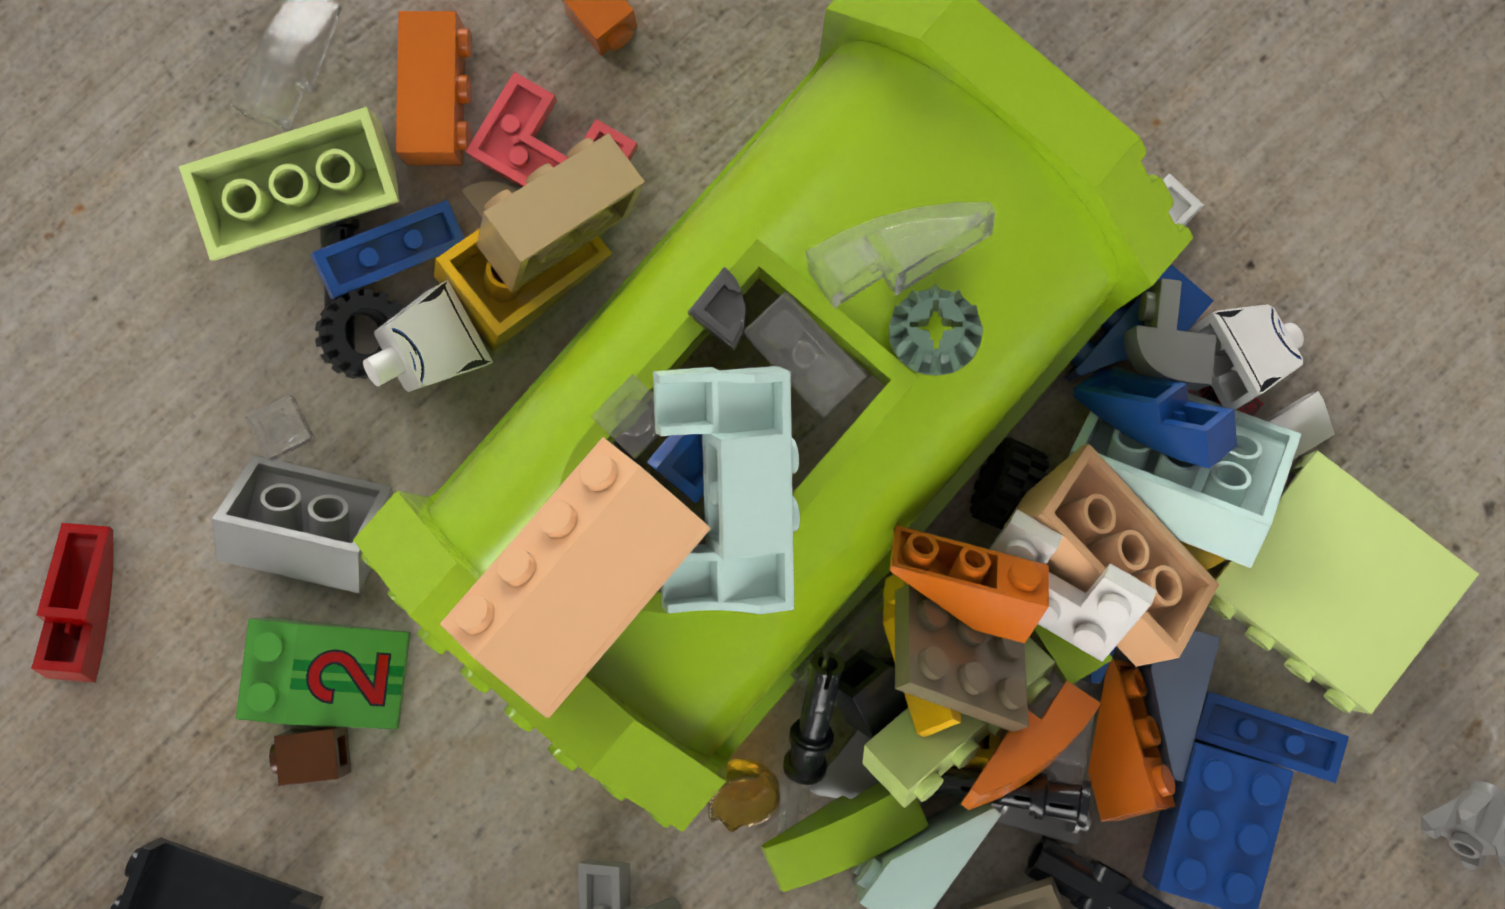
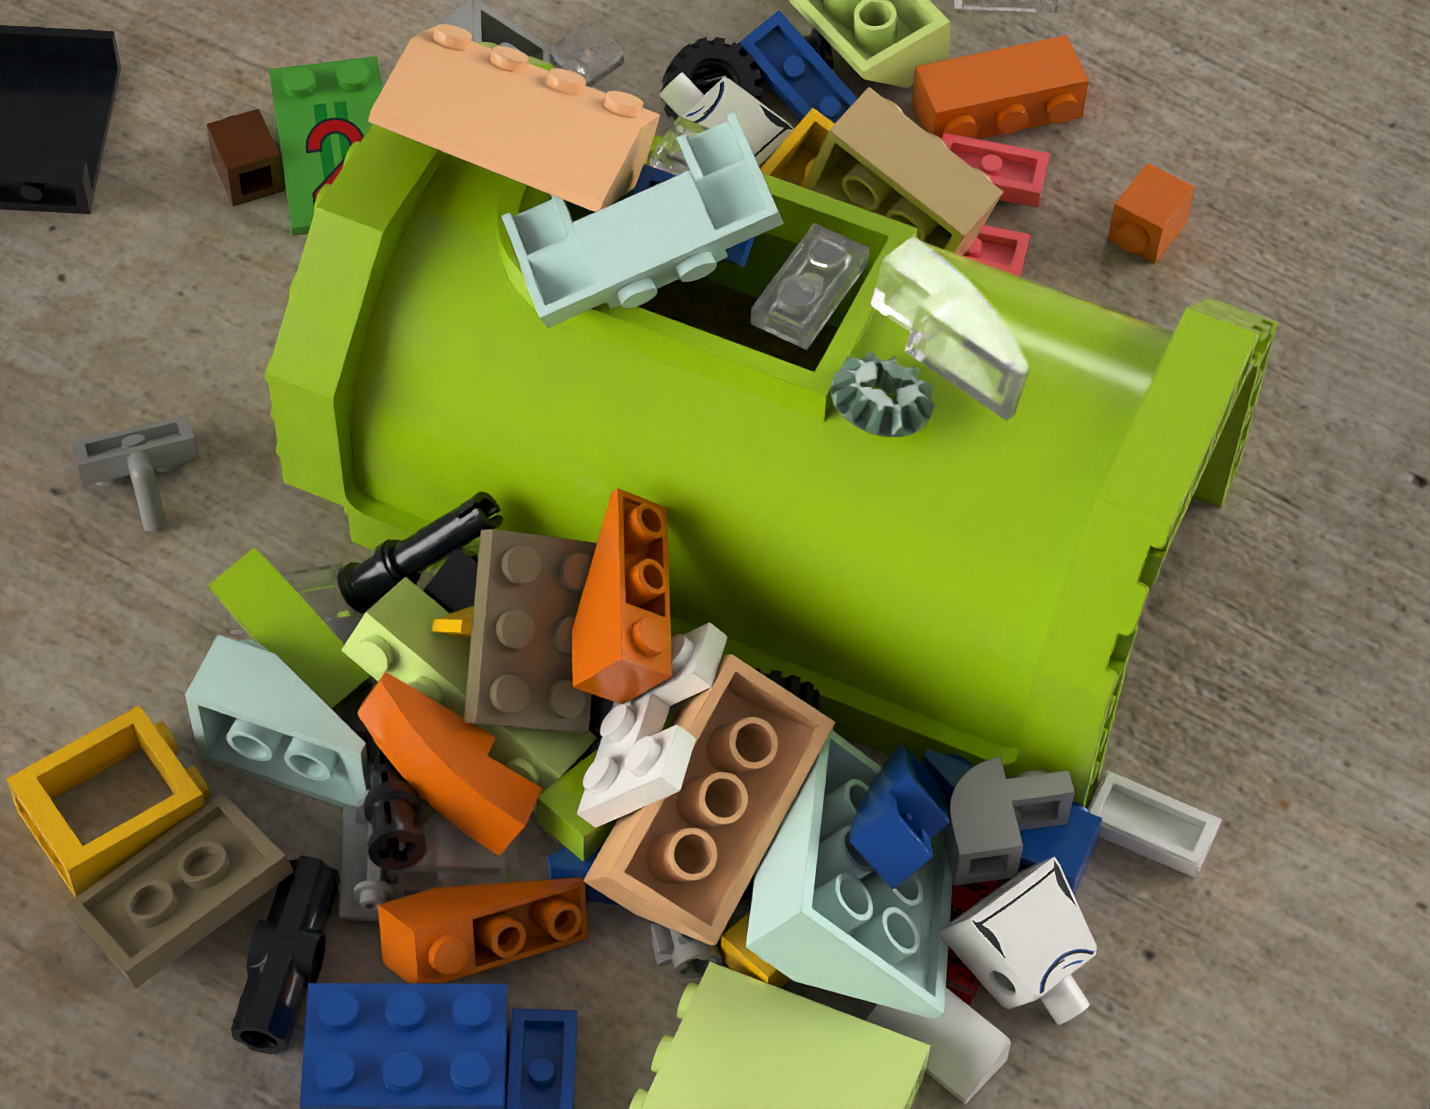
camera: 75 degrees right, 30 degrees down
(722, 309) = (832, 207): flat silver tile -> none
(747, 795) = (306, 534): clear yellow hair -> none
(1177, 697) = (584, 967): sand blue slope -> none

